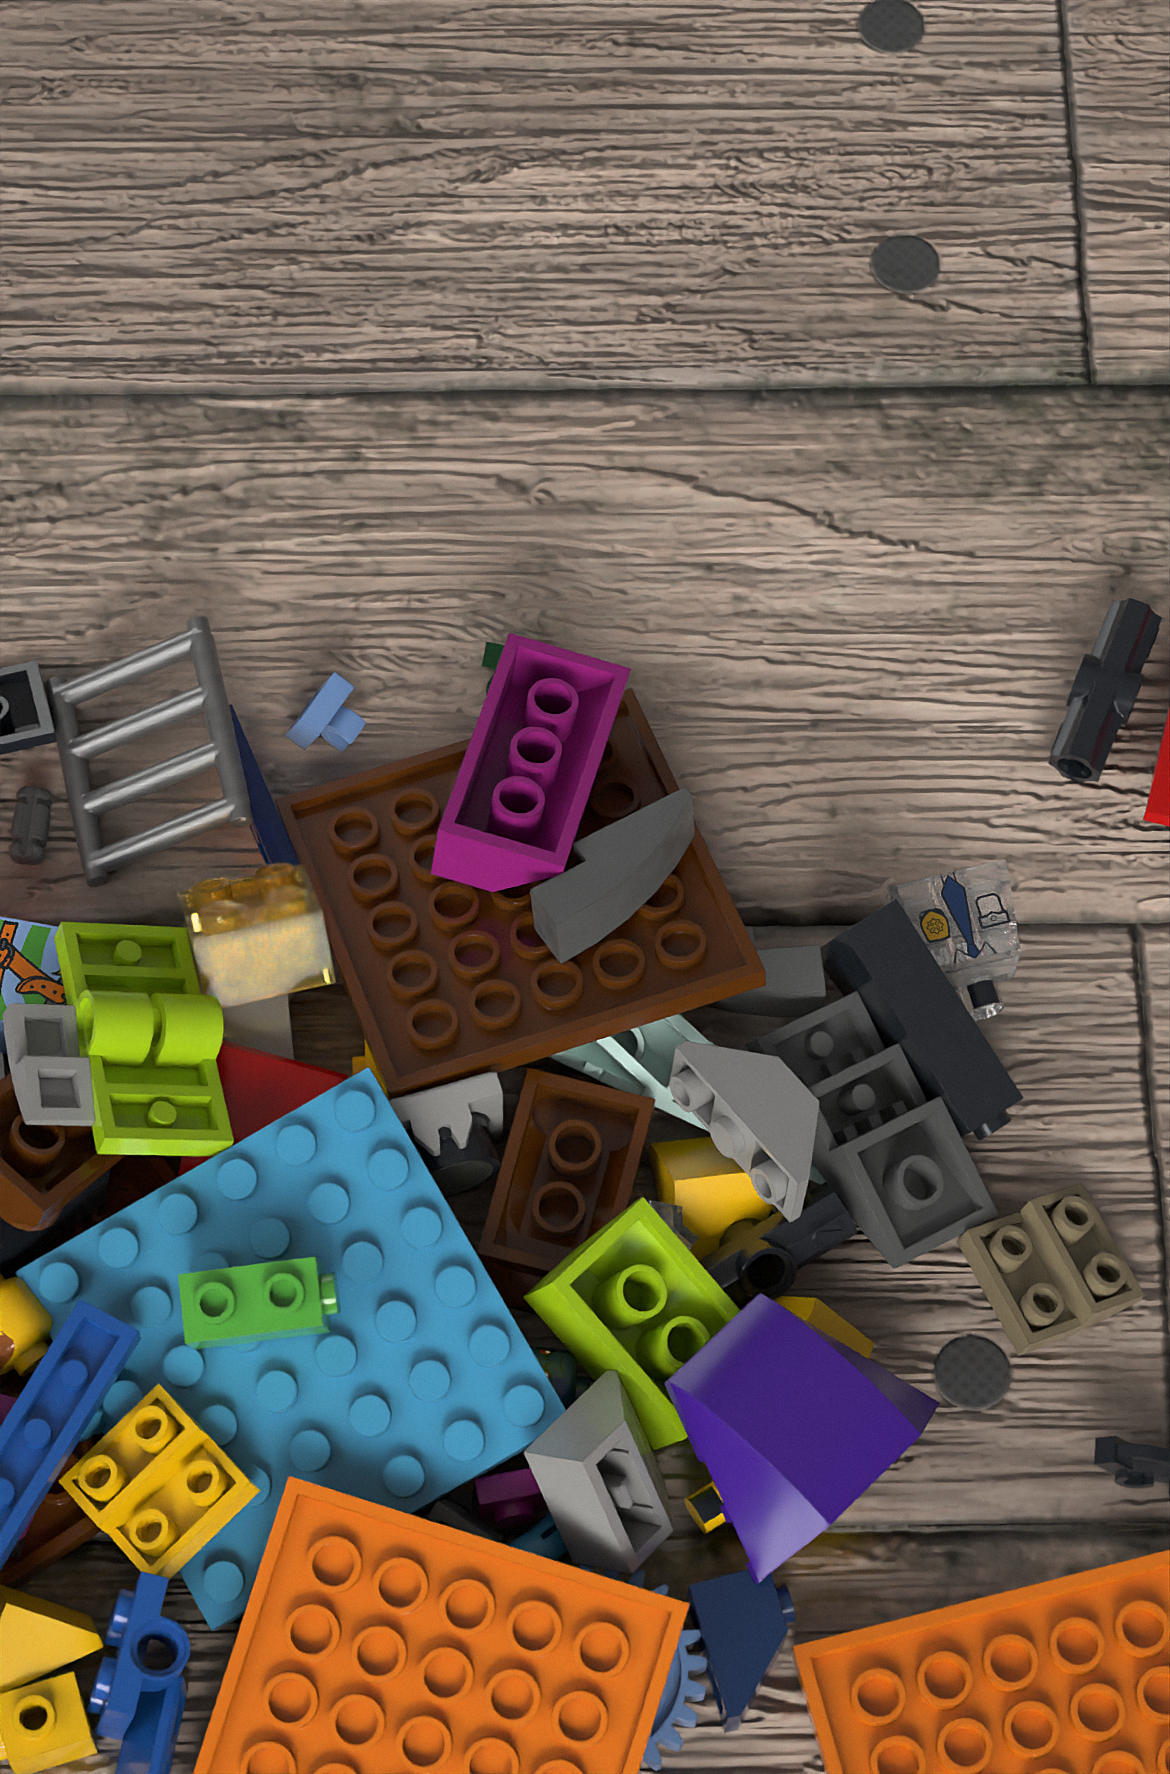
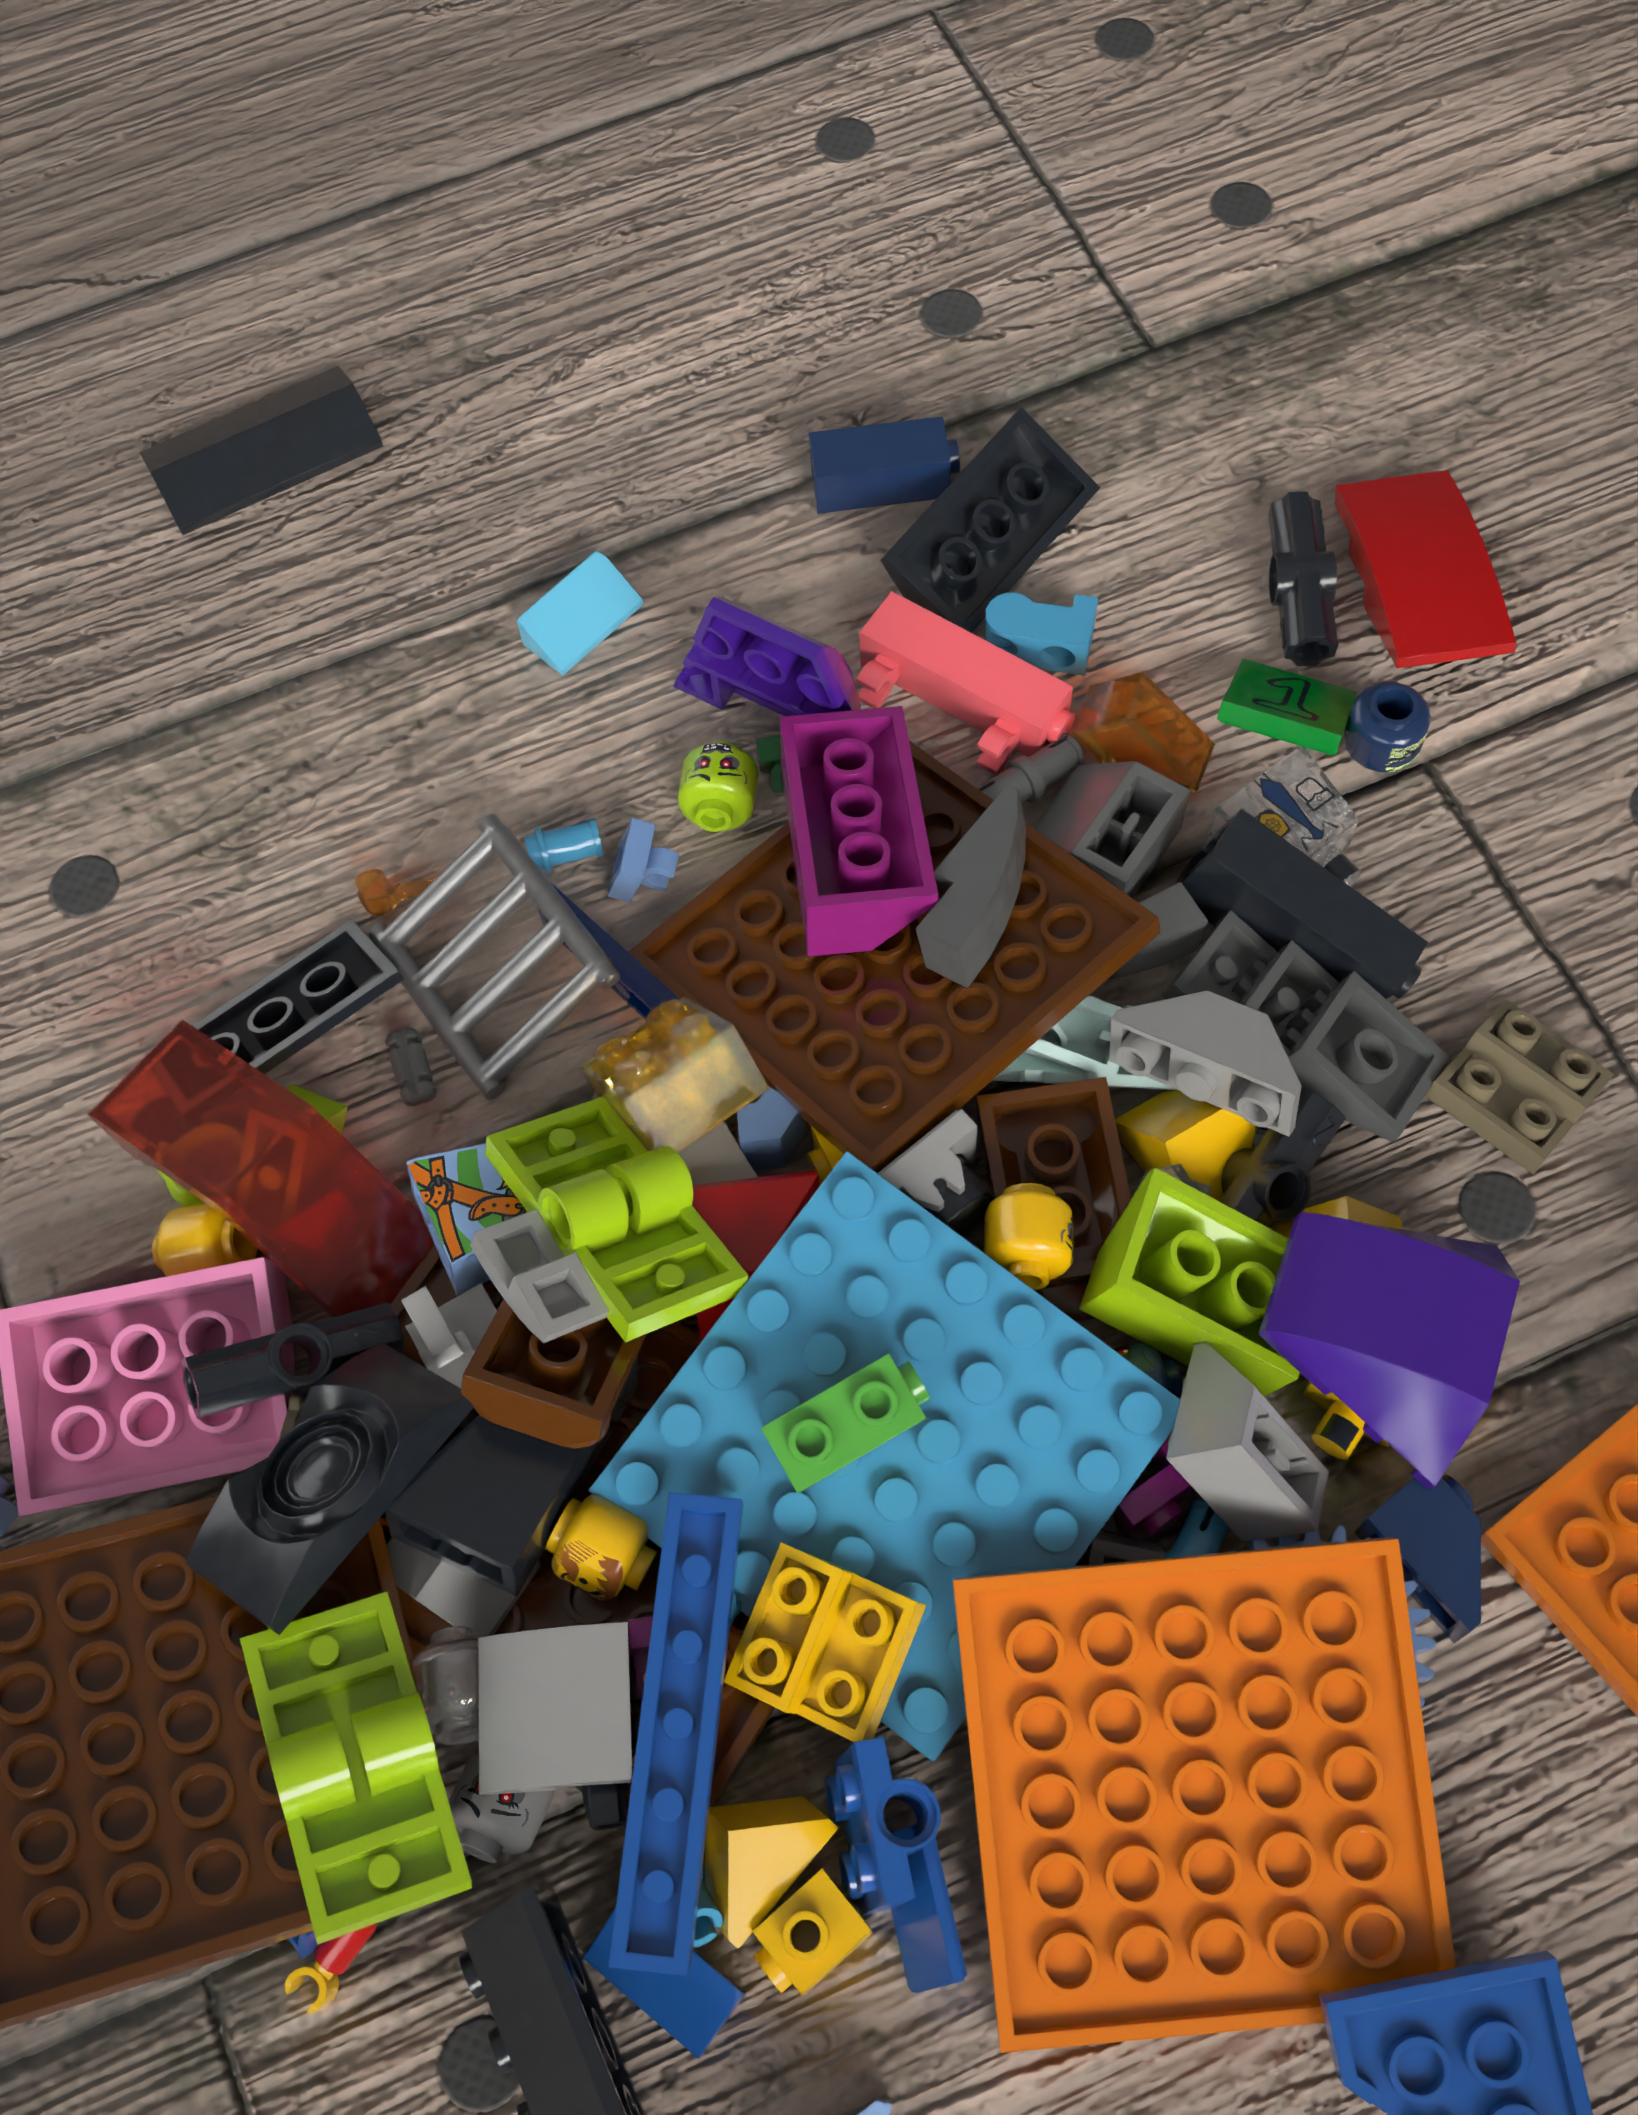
camera: 15 degrees left, 0 degrees up
(72, 649) = (380, 897): none -> clear orange hand
(151, 140) = (261, 449): none -> black slope
(264, 669) = (564, 844): none -> dark azure pin
(325, 1023) = (770, 1131): none -> medium blue piece
(383, 440) = (578, 613): none -> medium azure slope
(436, 669) = (718, 784): none -> lime head
(508, 1212) = (1030, 1233): none -> yellow head
(509, 550) = (764, 663): none -> dark purple wedge
(722, 657) = (965, 678): none -> coral brick
(738, 781) = (1038, 770): none -> dark grey pin
(748, 404) = (881, 464): none -> dark blue brick
(787, 866) = (1116, 820): none -> dark grey slope
(822, 644) = (1043, 633): none -> dark azure leg
(824, 511) = (989, 523): none -> black slope
(866, 785) = (1140, 723): none -> clear orange slope
(1017, 814) = (1287, 706): none -> green tile
(1102, 874) = (1387, 726): none -> dark blue head

